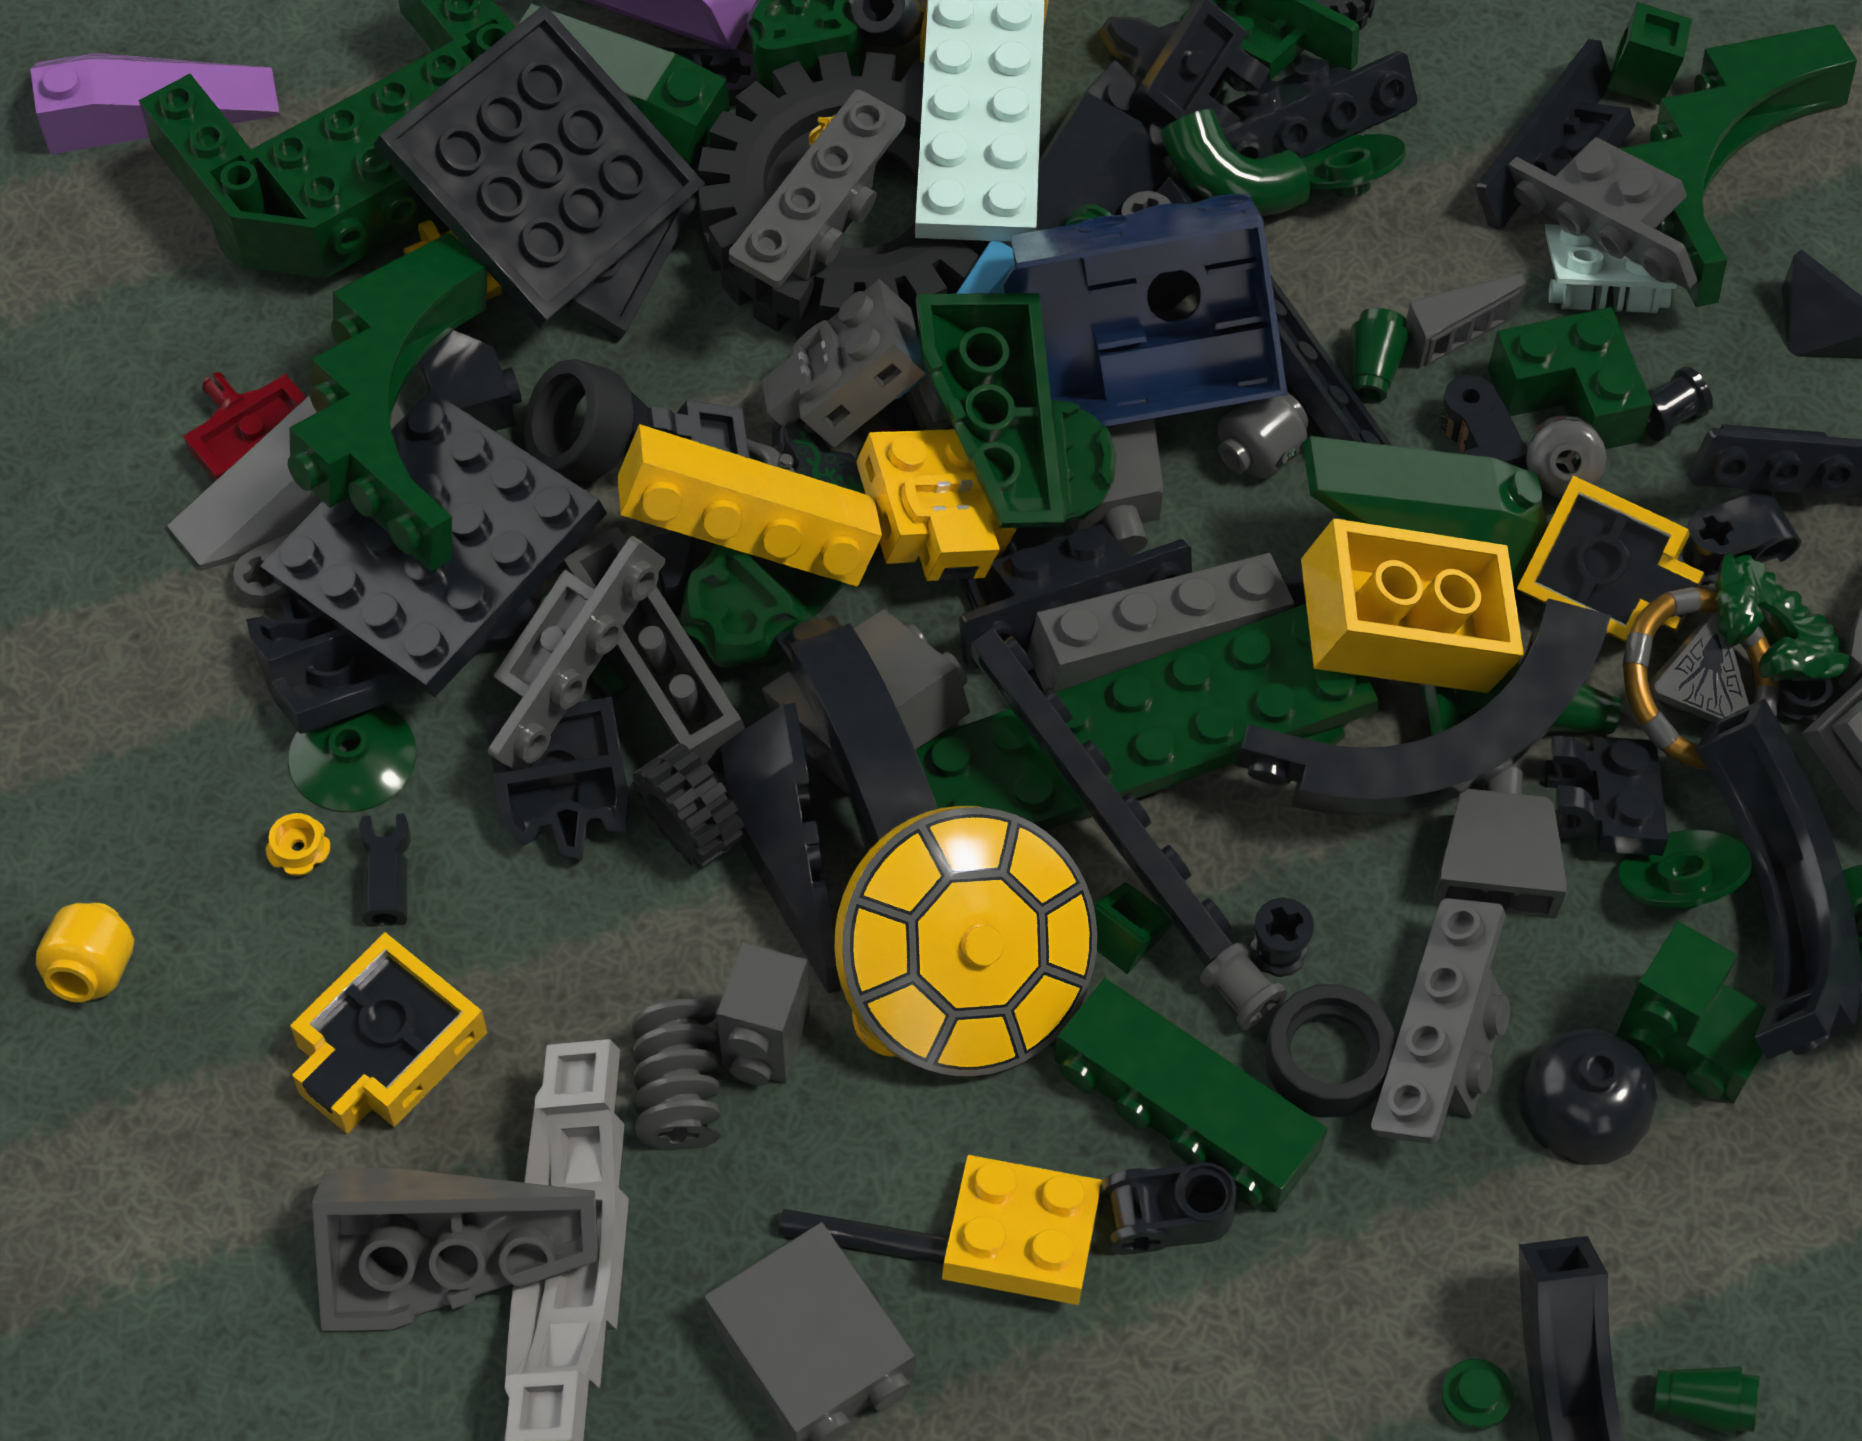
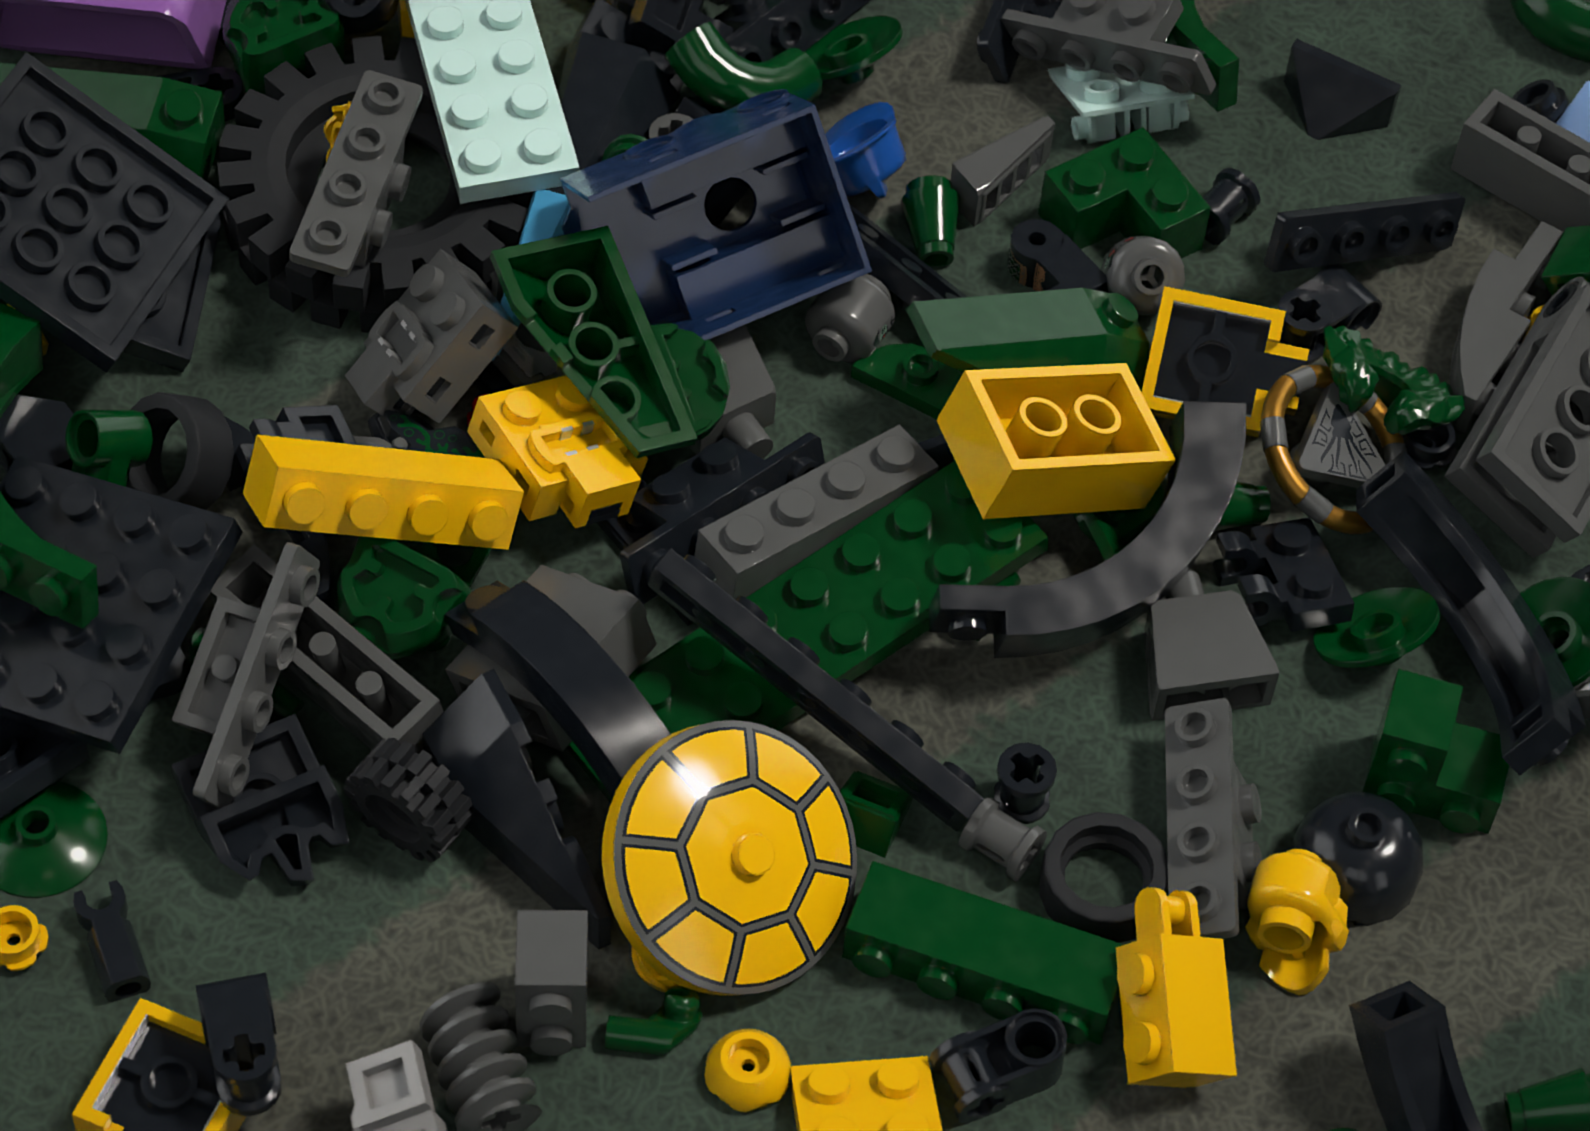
camera: 20 degrees left, 5 degrees down
(457, 992) = (240, 1035): none -> black piece
(516, 399) = (108, 443): none -> dark green piece
(859, 1088) = (662, 1030): none -> dark green arm
(923, 1166) = (746, 1089): none -> yellow plate
(1289, 499) = (908, 376): none -> dark green plate
(1327, 269) = (867, 149): none -> blue piece
(1353, 1187) = (1174, 996): none -> yellow brick
(1504, 1140) = (1296, 918): none -> yellow head

